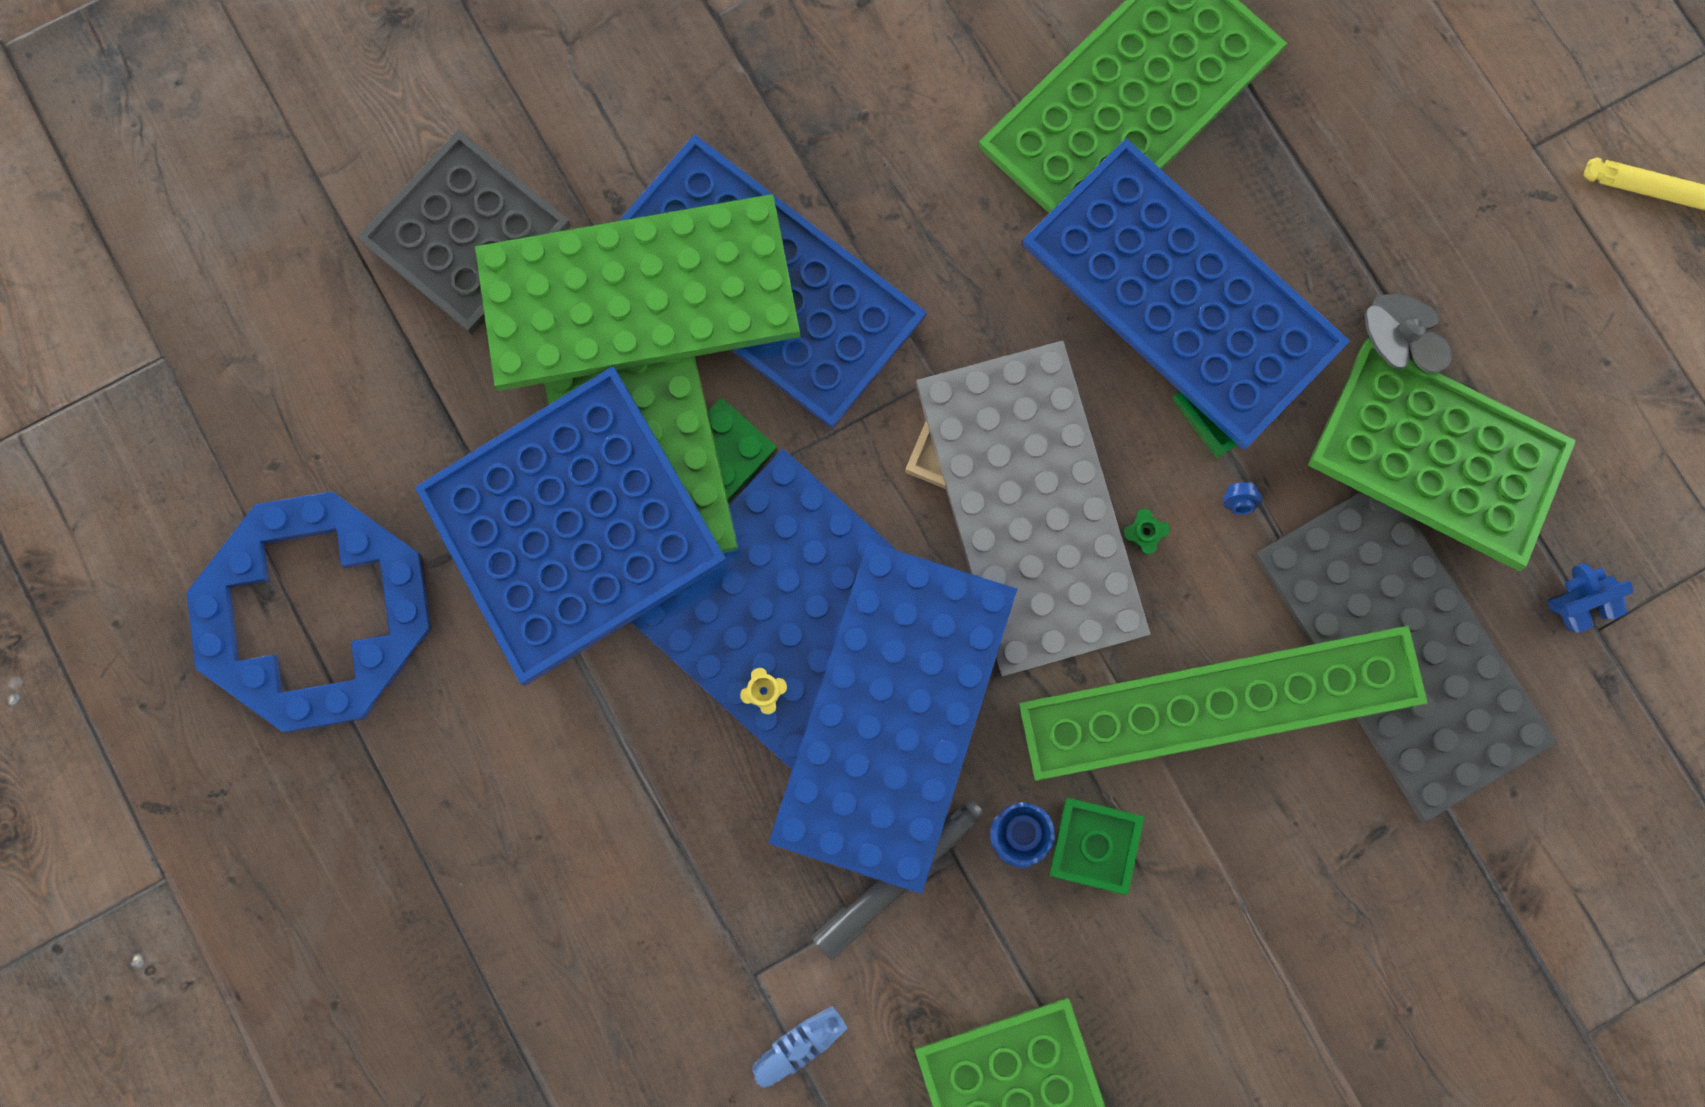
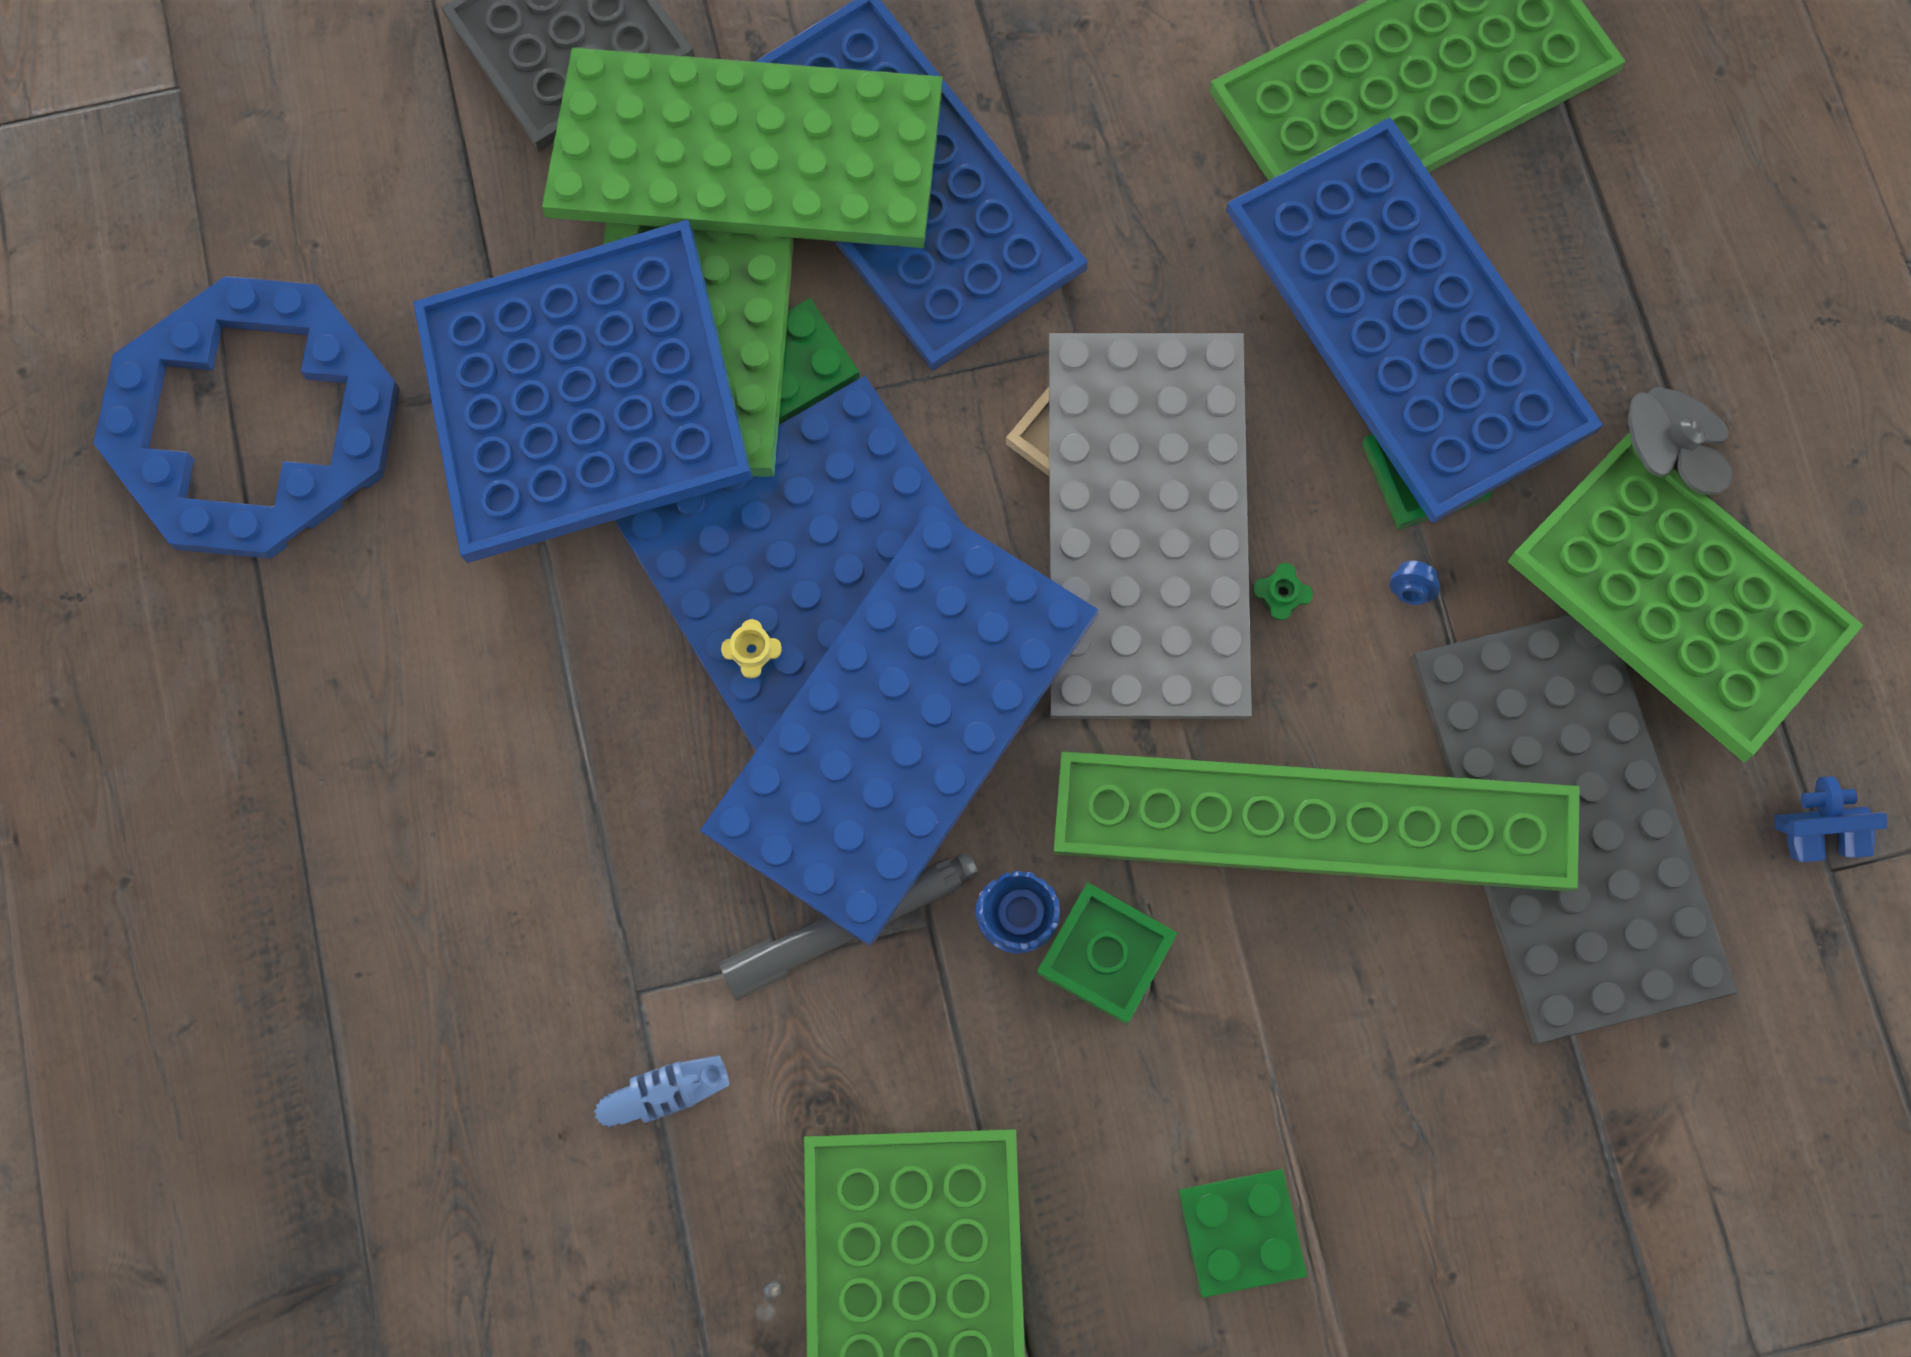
camera: 20 degrees right, 5 degrees down
(1252, 1024) = (1242, 1233): none -> green plate

